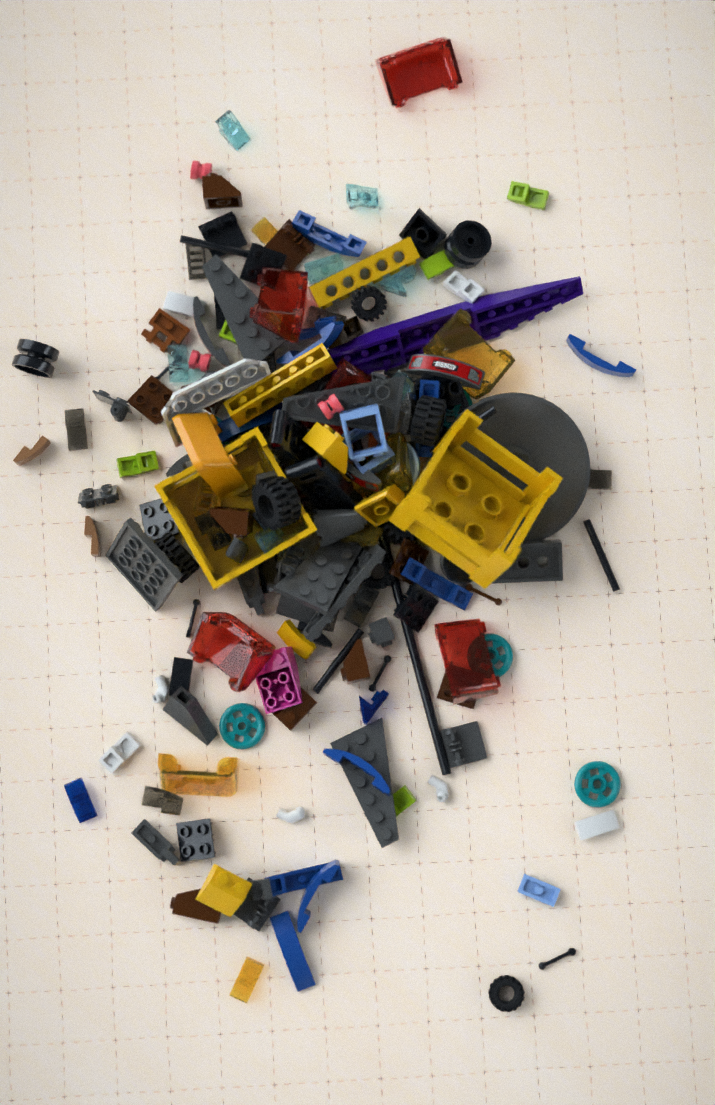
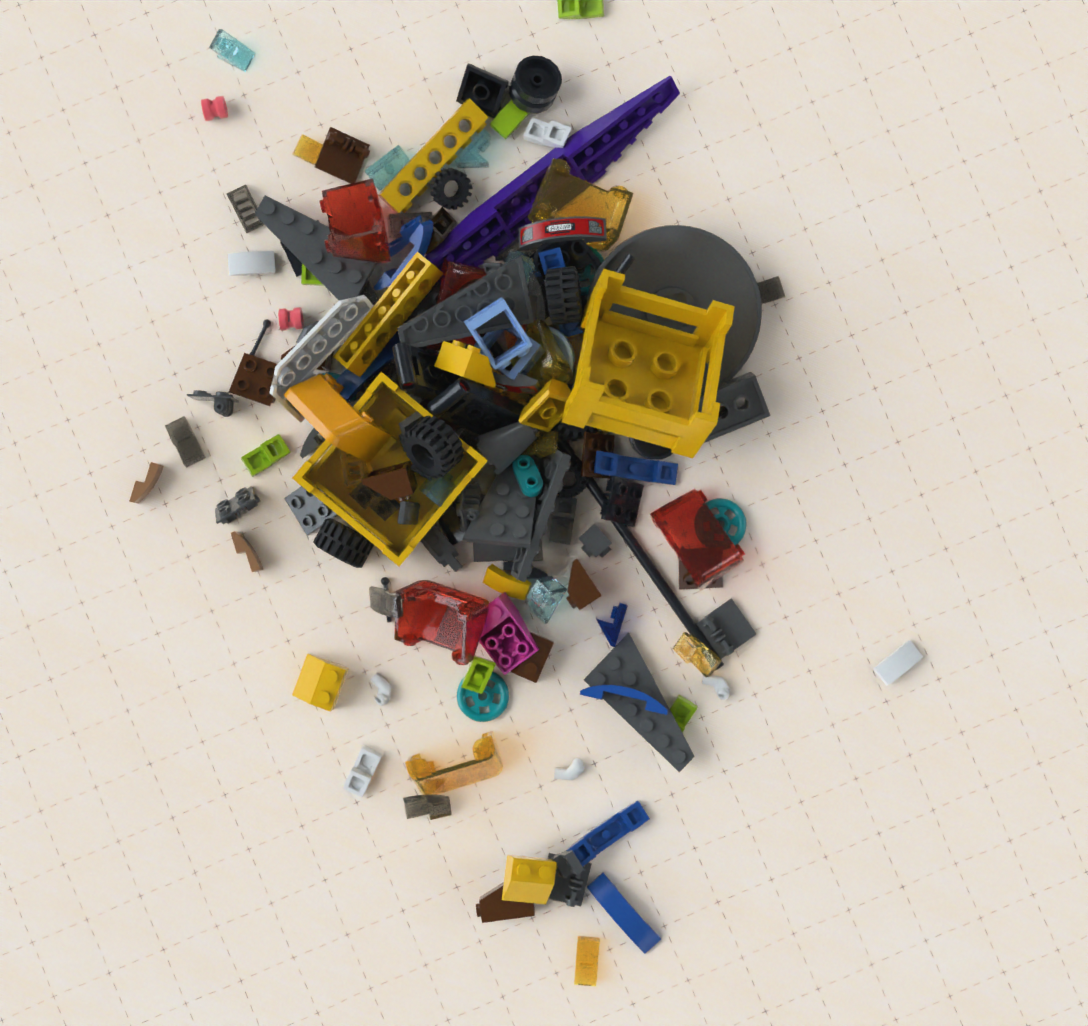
camera: 15 degrees left, 5 degrees up
(35, 358) = (110, 381): black wheel -> none
(80, 800) = (339, 837): clear blue slope -> none
(112, 665) = (320, 682): none -> yellow slope
(143, 564) = (313, 563): dark grey plate -> none
(155, 842) = (436, 853): dark grey hinge -> none
(169, 327) = (243, 293): dark orange plate -> none
(177, 363) = (268, 329): clear light blue slope -> none
(180, 674) = (398, 668): black slope -> none
(189, 713) = (421, 703): dark grey slope -> none
(191, 619) = (385, 602): none -> clear smoke slope
(195, 840) = (478, 834): black hinge -> none
(213, 246) = (262, 186): black bar -> none
(219, 355) = (269, 266): dark grey slope -> none
(220, 193) = (244, 125): reddish brown slope -> none
(224, 231) = (264, 170): black hinge -> none
(244, 705) = (478, 674): none -> lime slope
(257, 259) = (313, 182): black hinge -> none
(323, 662) = (545, 597): none -> clear light blue slope
(326, 874) = (629, 822): blue slope -> none
(327, 238) = (379, 133): blue slope -> none
(335, 405) = (455, 314): coral wheel -> none
(338, 660) = (562, 579): black bar -> none
(345, 555) = (526, 474): none -> teal plate
(361, 196) = (400, 73): clear light blue slope -> none
(387, 659) = (606, 603): black hinge -> none
(432, 755) = (700, 655): none -> clear yellow slope
(498, 601) = (707, 462): reddish brown hinge -> none
(518, 996) = (852, 875): black tyre -> none
(538, 890) = (861, 754): light blue plate -> none
(571, 951) = (918, 805): black hinge -> none
(583, 793) = (872, 634): teal plate -> none
(597, 363) = (693, 154): blue slope -> none
(601, 555) = (802, 374): black bar -> none

